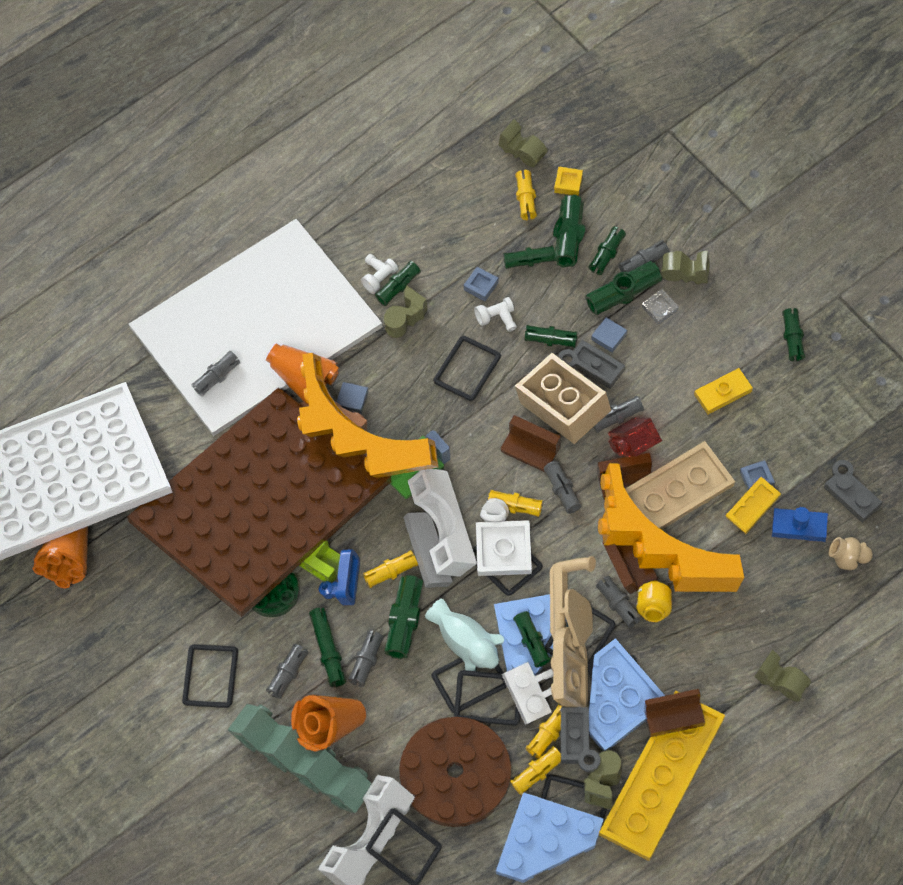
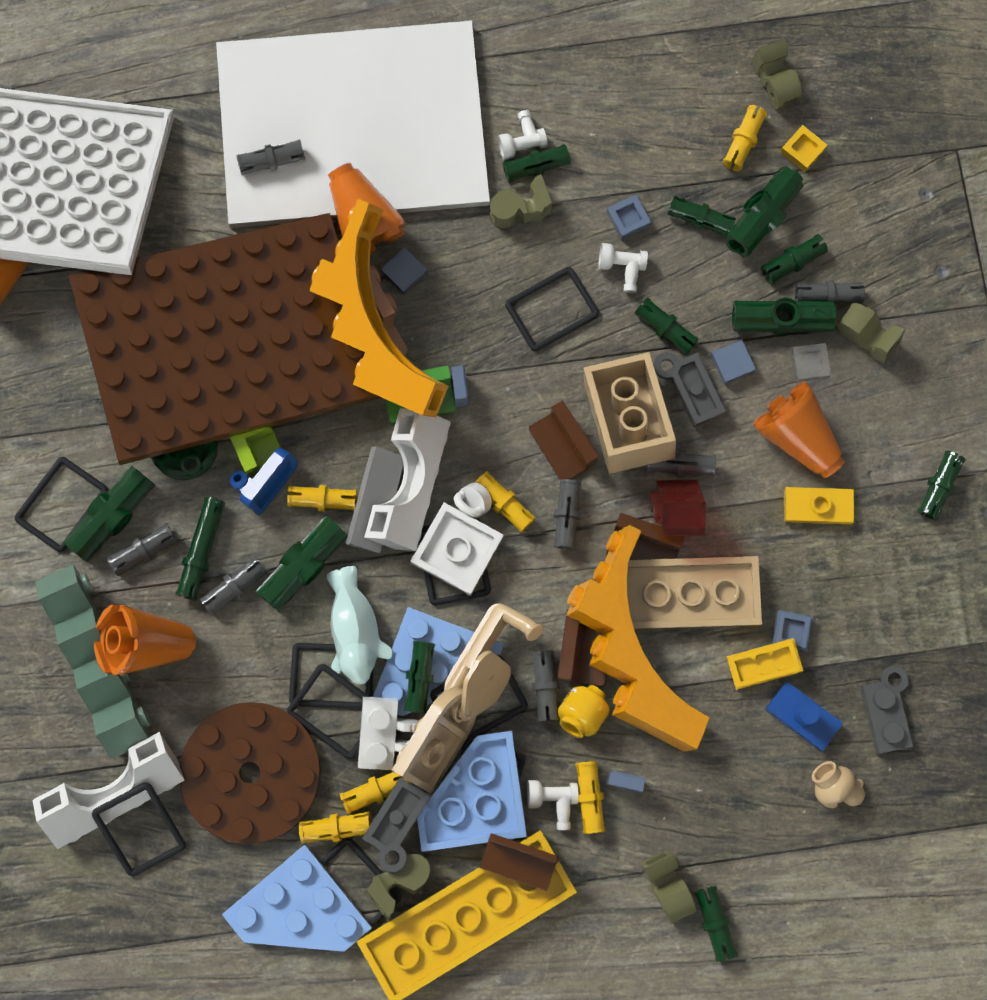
camera: 25 degrees right, 15 degrees up
(249, 660) = (109, 513): none -> dark green piece
(657, 671) = (562, 795): none -> white piece
(682, 349) = (801, 430): none -> orange cone
(694, 653) = (590, 797): none -> yellow pin
(711, 629) = (625, 781): none -> sand blue tile
(829, 684) = (716, 923): none -> dark green pin

